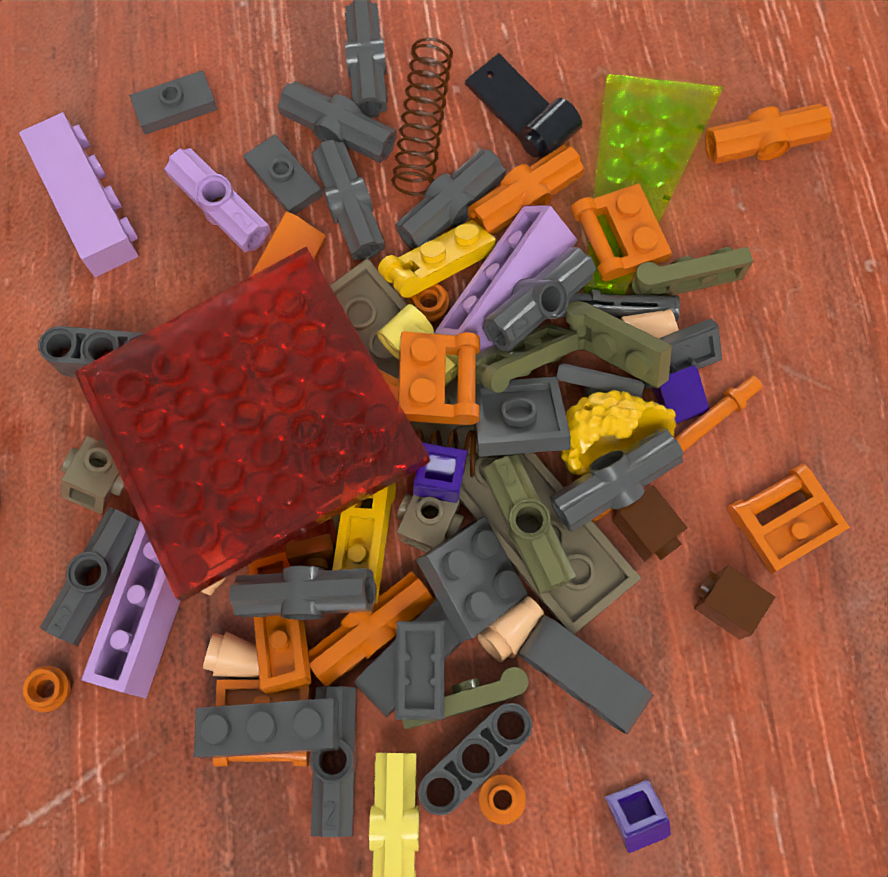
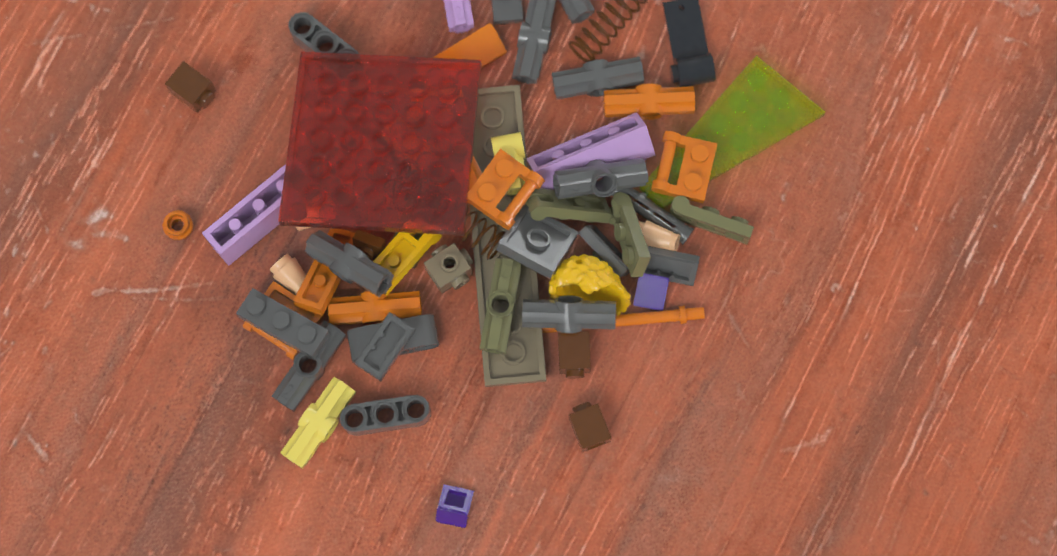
camera: 35 degrees right, 5 degrees up
(77, 601) = (223, 188): dark grey piece -> none
(91, 476) = (274, 118): dark tan brick -> none
(435, 293) = (540, 126): orange plate -> none
(437, 259) = (562, 112): yellow plate -> none
(442, 475) = (468, 247): dark purple slope -> none
(472, 578) = (449, 316): dark grey plate -> none
(472, 696) = (407, 382): olive plate -> none
(511, 629) = (453, 359): light nougat cone -> none
(517, 804) = (394, 451): orange plate -> none
(585, 674) = (477, 411): dark grey beam -> none
(768, 133) = (831, 161): orange piece -> none
(794, 531) = (659, 413): orange plate -> none

